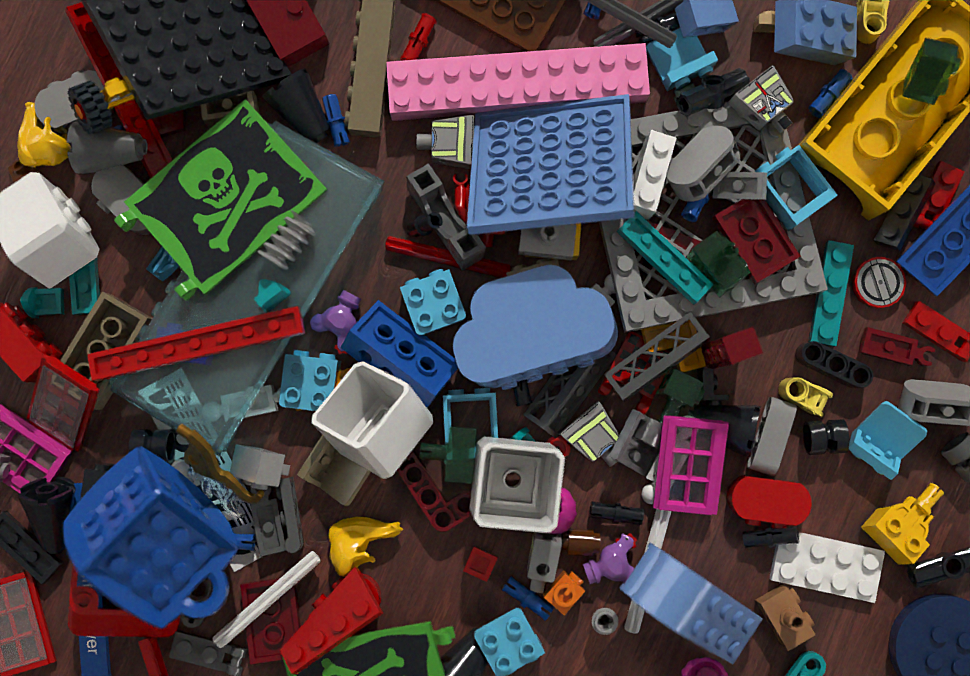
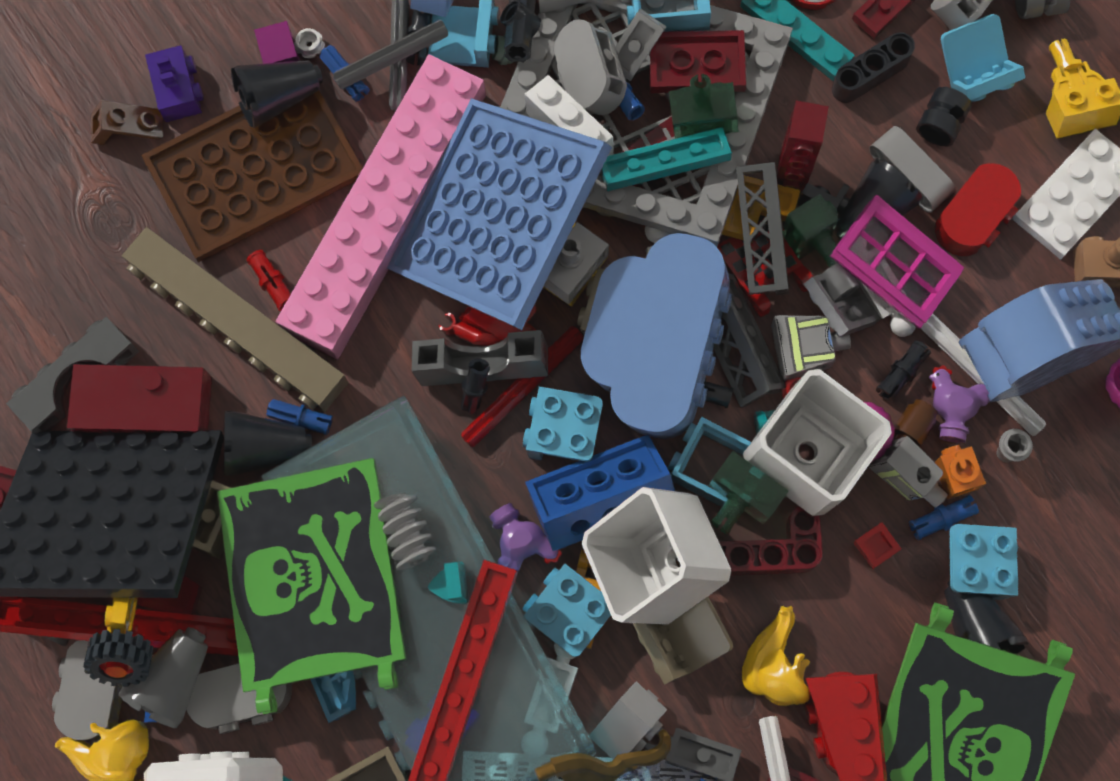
camera: 55 degrees left, 10 degrees down
(290, 516) = (705, 723): dark grey plate -> none
(450, 141) = (402, 309): light grey torso -> none
(771, 537) = (1018, 228): black pin -> none
(809, 396) = (891, 110): light yellow piece -> none

